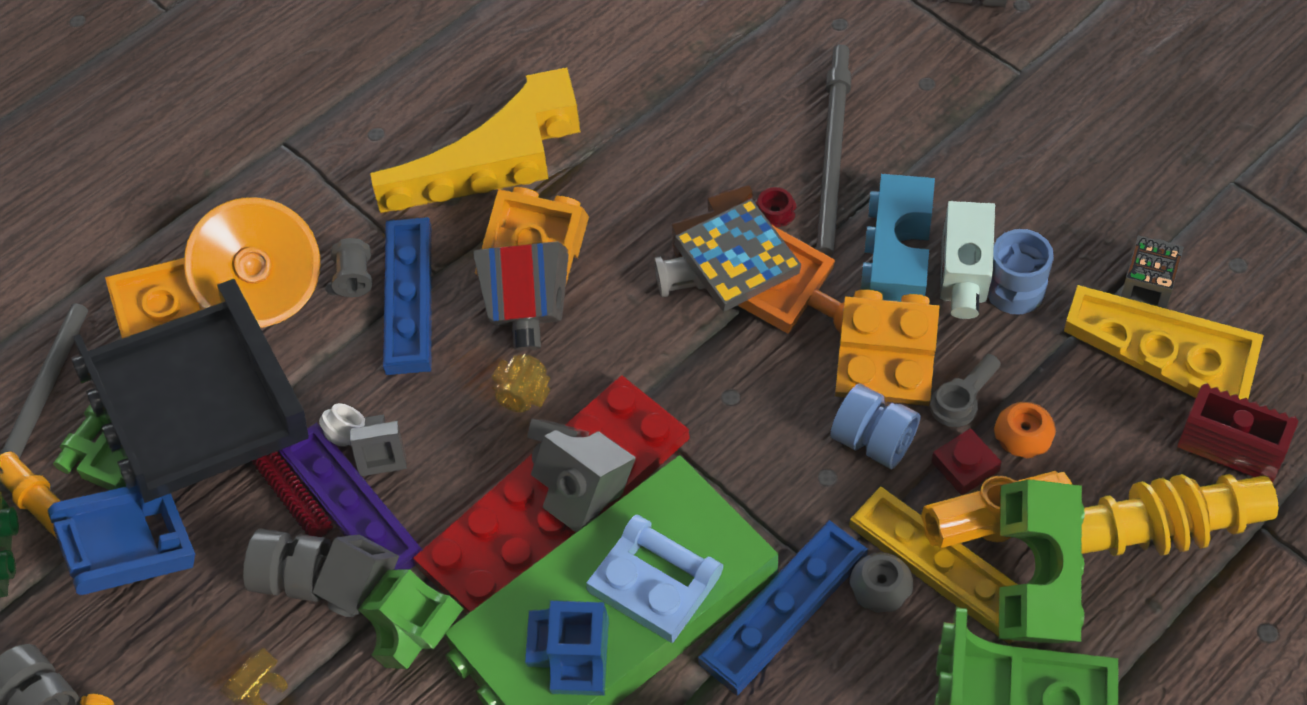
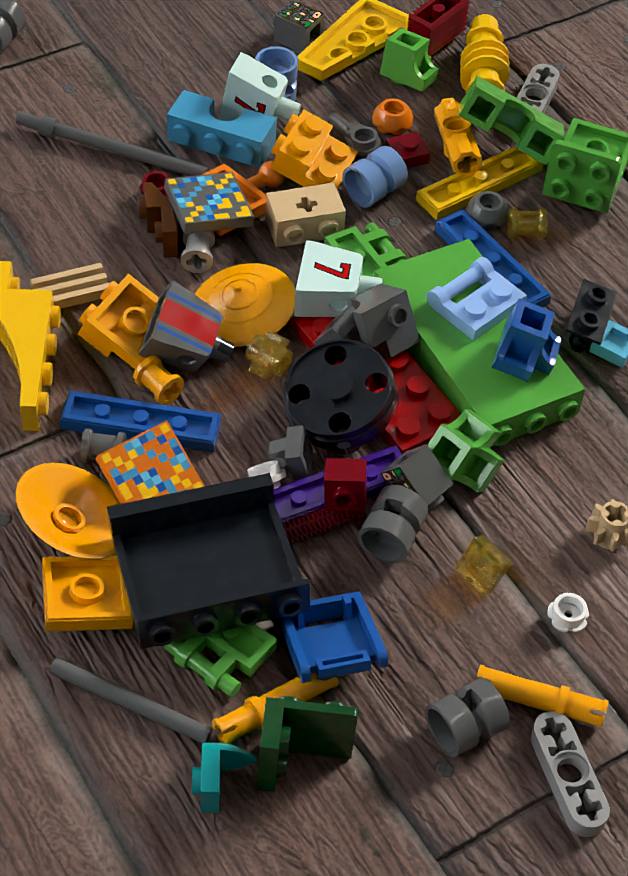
camera: 85 degrees left, 5 degrees down
(317, 316) = (148, 466): none -> tile
(317, 497) = (345, 484): none -> dark red plate
(447, 298) = (158, 380): none -> light orange bush
(460, 464) = (340, 394): none -> black piece
(570, 156) = (70, 282): none -> tan tile
(609, 343) = (250, 299): none -> light orange hat
(639, 408) = (329, 280): none -> light aqua torso
(730, 439) = (368, 245): none -> bright green plate
(777, 367) = (304, 214): none -> tan brick
(855, 619) = (527, 223): none -> clear yellow bush
(1140, 419) = (408, 60): none -> bright green brick
(1173, 590) = (533, 88): none -> light grey beam

